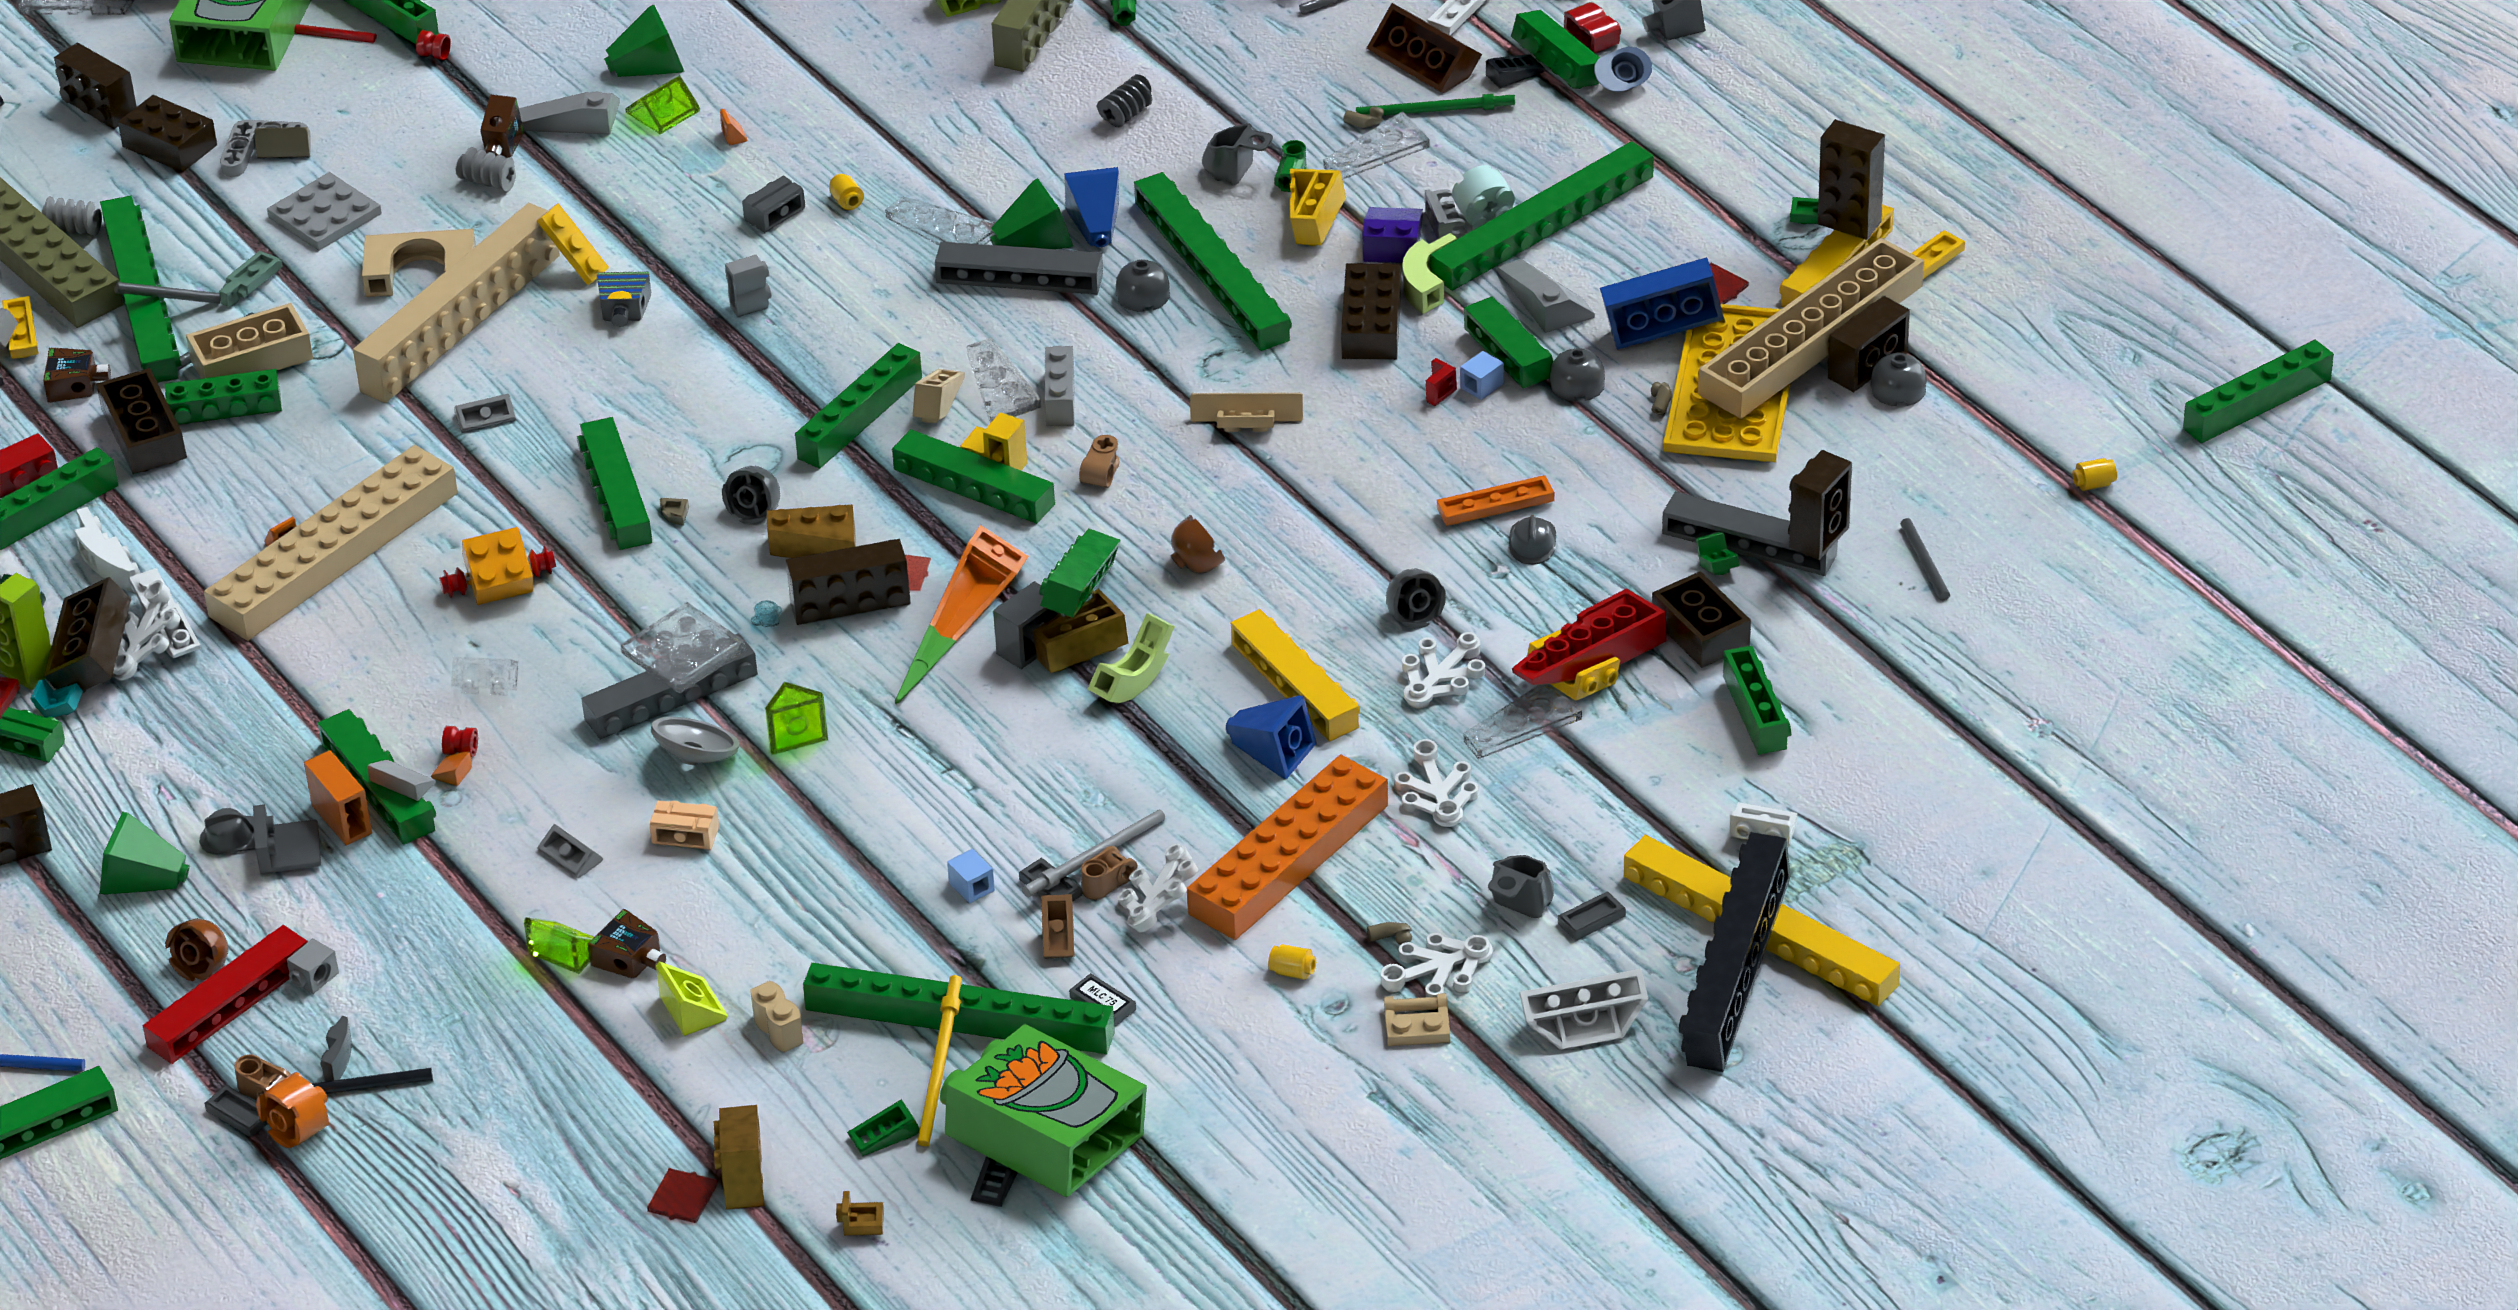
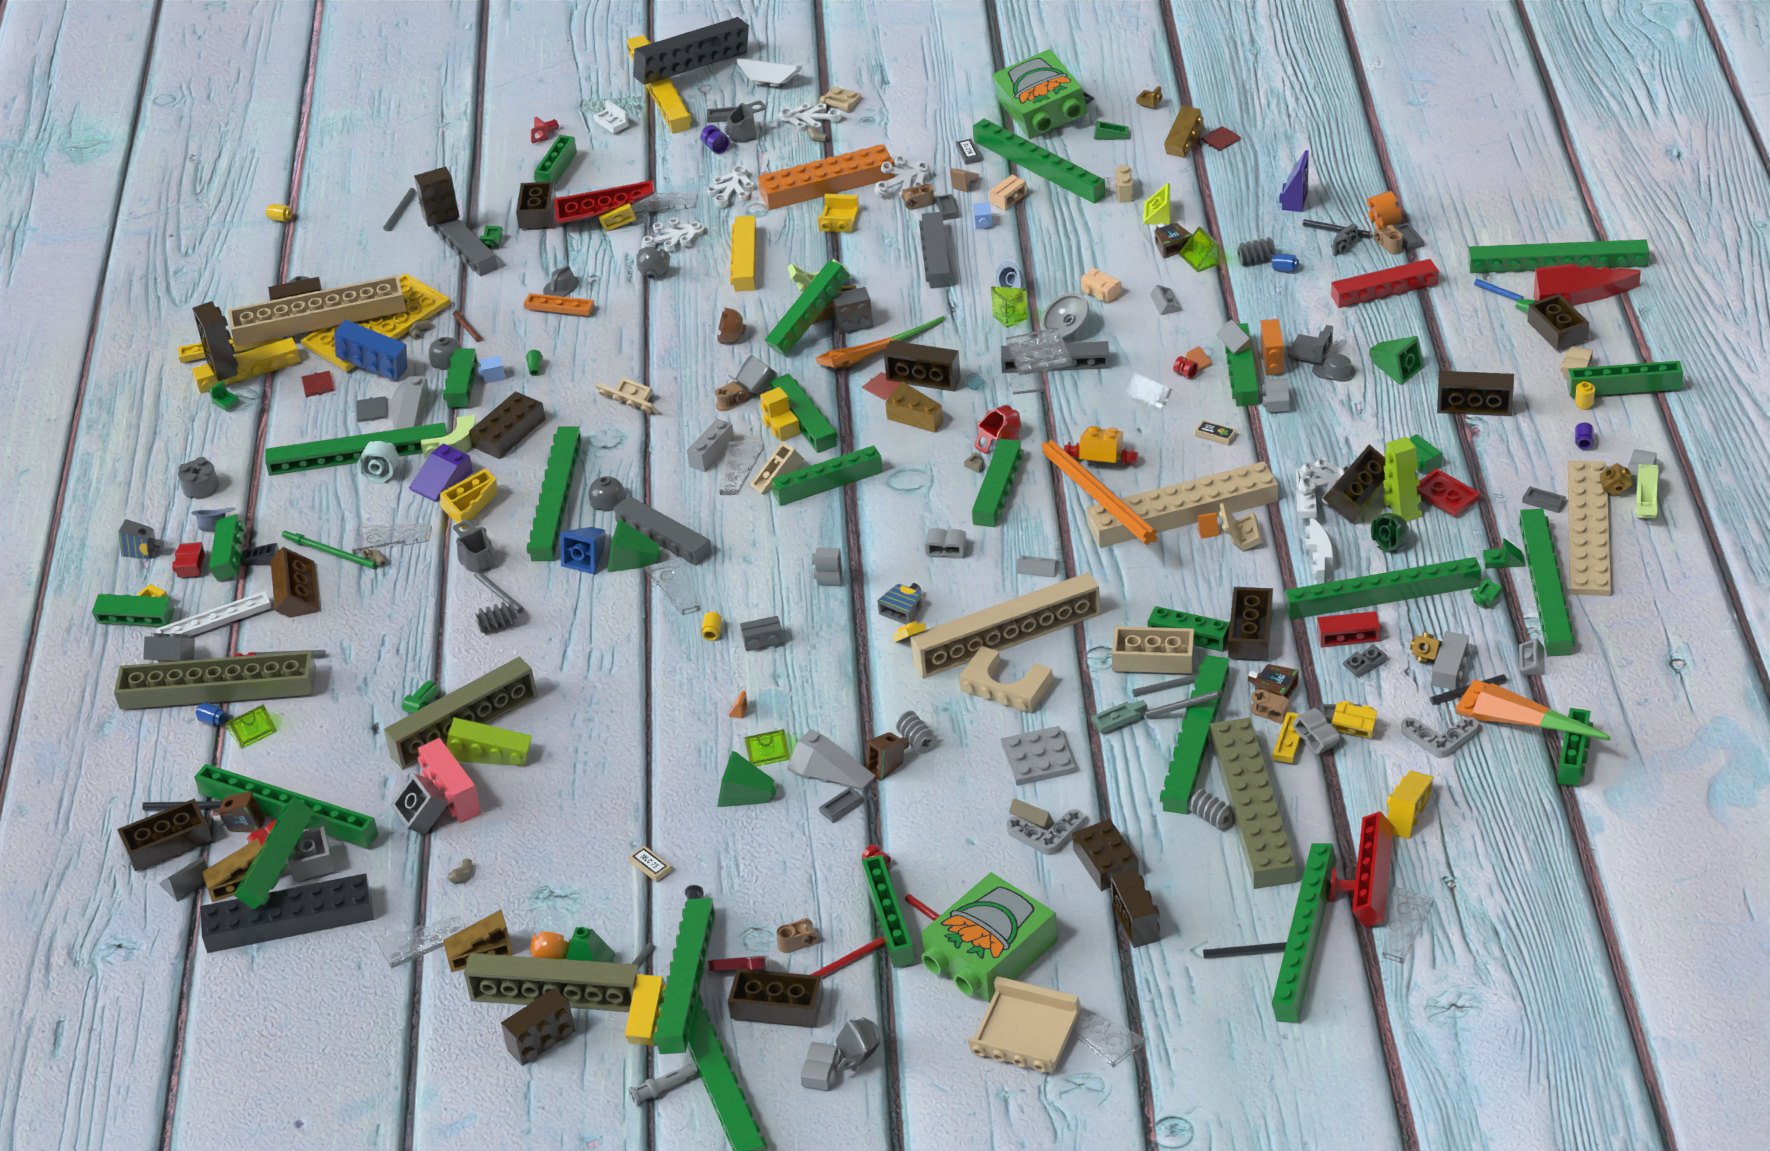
camera: 145 degrees left, 0 degrees up
(63, 339) = (1271, 706): none -> medium nougat piece
(197, 949) = (1387, 303): dark orange cylinder -> none
(234, 533) = (1244, 531): none -> tan bracket
(292, 745) = (1275, 395): none -> light grey brick
(312, 966) = (1330, 276): light grey brick -> none
(355, 671) = (1215, 432): none -> tile
(413, 974) = (1285, 262): none -> blue brick
(444, 474) = (1100, 492): none -> orange axle
(469, 1095) = (1296, 188): none -> dark purple slope
(470, 969) = (1255, 250): none -> dark grey piece
(524, 85) = (841, 804): none -> dark grey tile
(624, 384) = (945, 543): none -> light grey brick
(667, 547) = (998, 424): none -> red piece
(751, 493) = (928, 441): dark grey cylinder -> none
(832, 780) = (1009, 275): none -> sand blue piece
(949, 1008) = (1047, 142): yellow bar -> none
(964, 933) = (1008, 192): none -> light nougat brick
(997, 790) = (934, 250): none -> dark grey brick
(1051, 877) = (948, 198): light grey bar -> none
(1081, 487) = (755, 375): none -> piece
(1158, 140) = (499, 592): none -> dark grey bar
(1209, 795) = (839, 213): none -> yellow panel
(1274, 734) = (783, 222): blue slope -> none
(1292, 158) = (447, 536): green piece -> none
(1292, 961) = (872, 133): yellow brick -> none
(1436, 409) = (534, 361): none -> green cone
(1441, 382) = (516, 372): red bracket -> none
(1443, 215) = (407, 472): light grey hinge -> none
(1547, 845) = (714, 139): none -> dark purple wheel
(1591, 278) = (371, 409): none -> dark grey piece
(1598, 429) = (467, 326): none -> copper bar
(1703, 104) = (198, 478): none -> dark grey brick
(1857, 764) = (542, 129): none -> red bracket
(2258, 391) = (156, 220): green brick -> none

